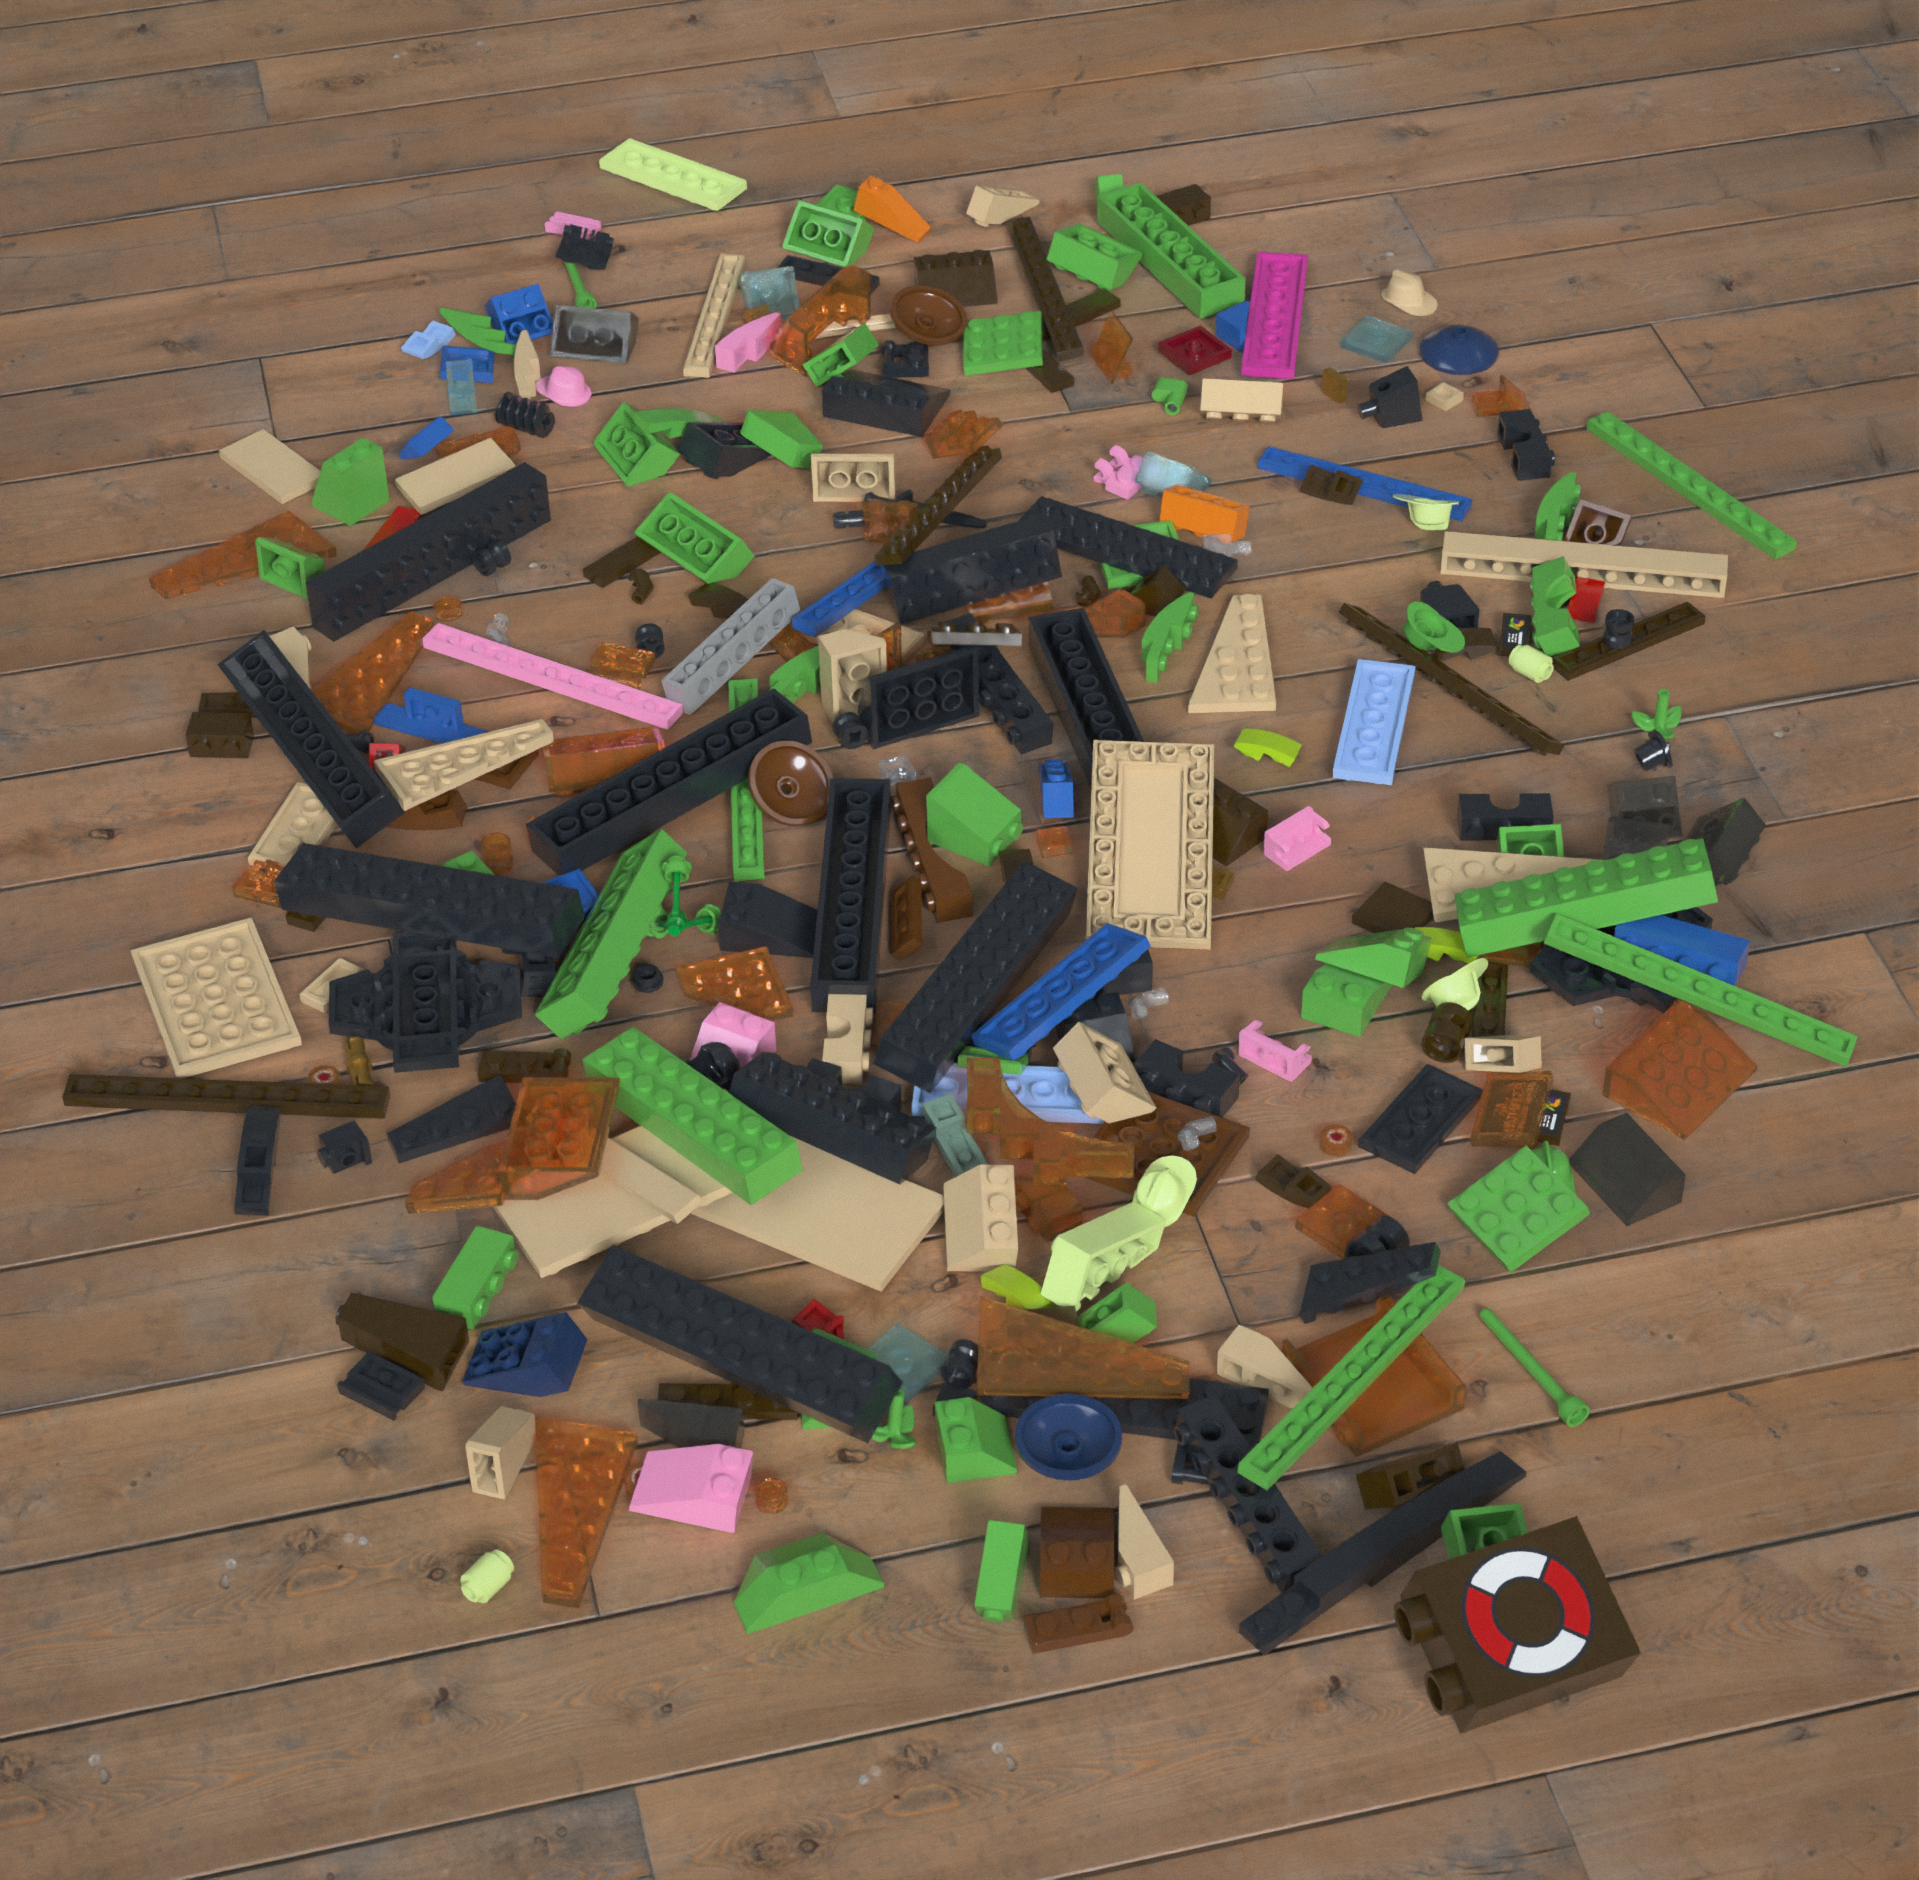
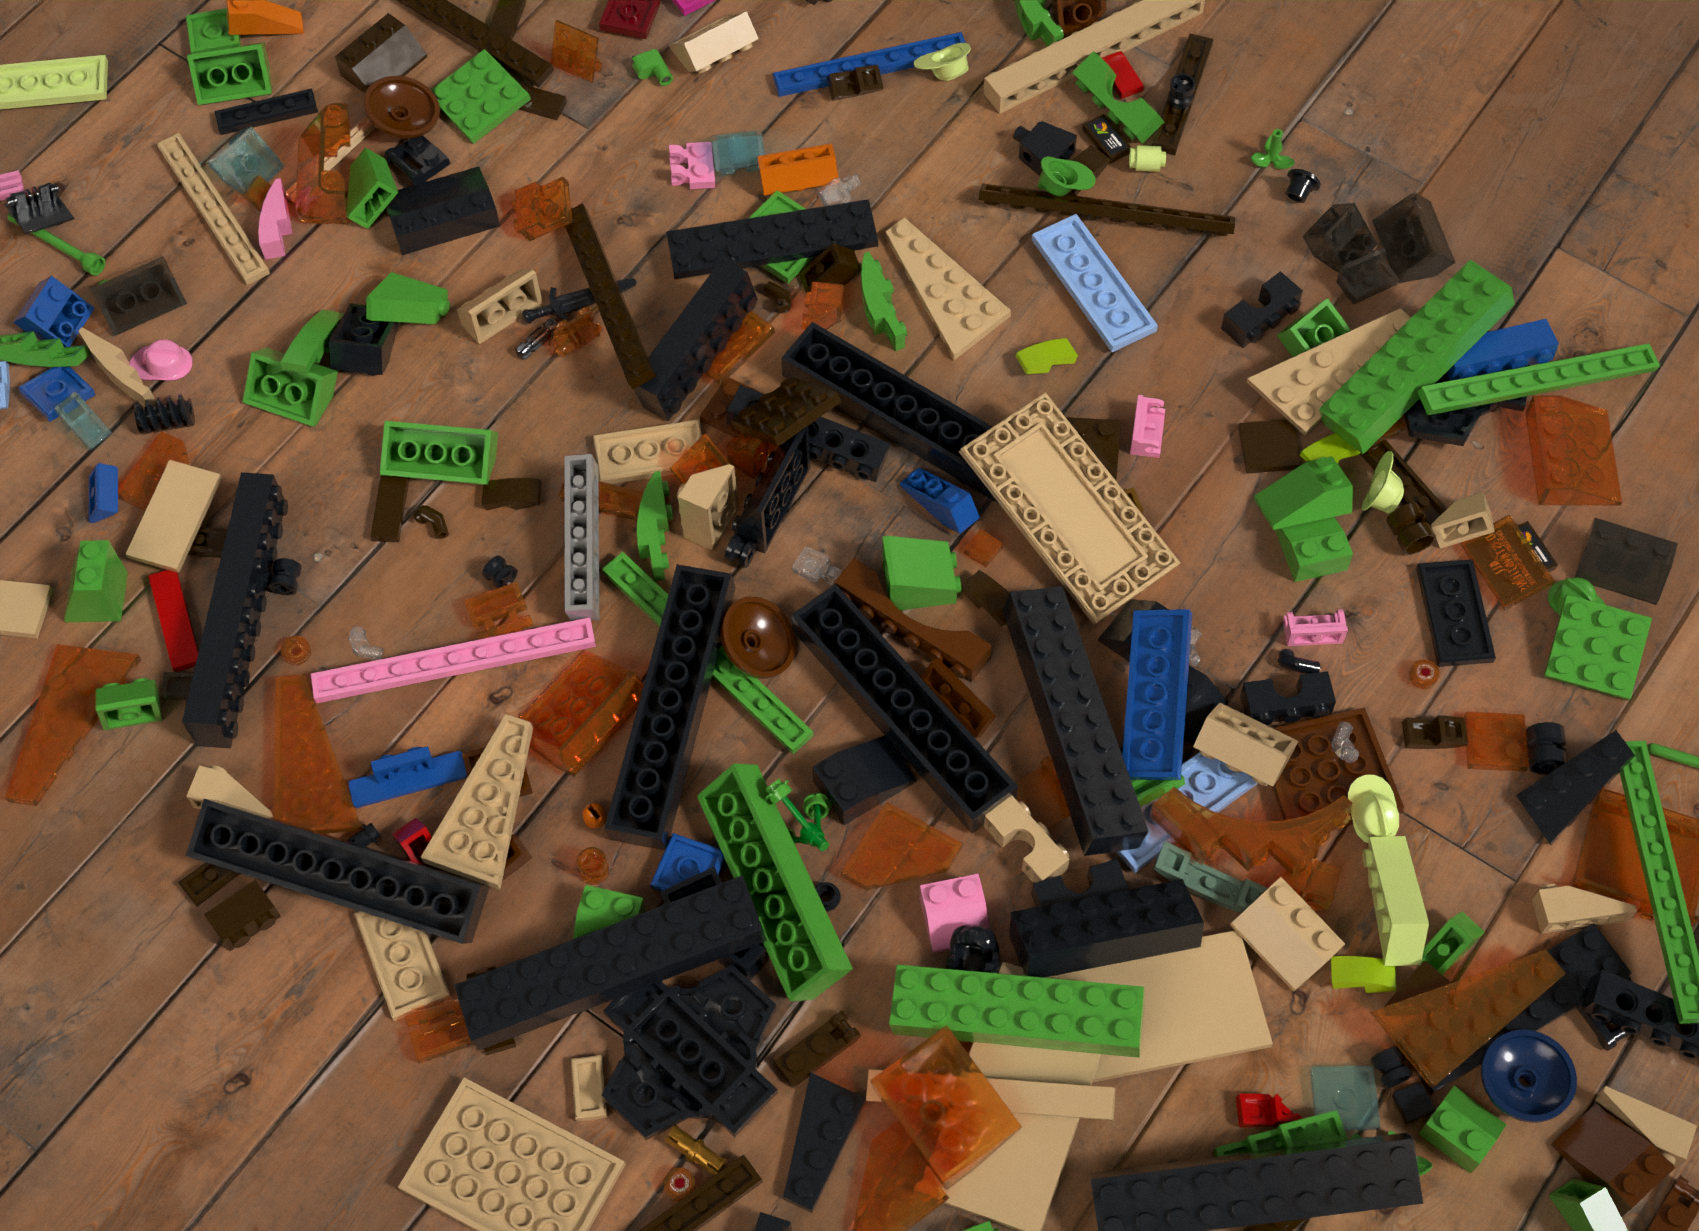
camera: 40 degrees left, 20 degrees up
(841, 601) = (614, 421): blue plate -> none

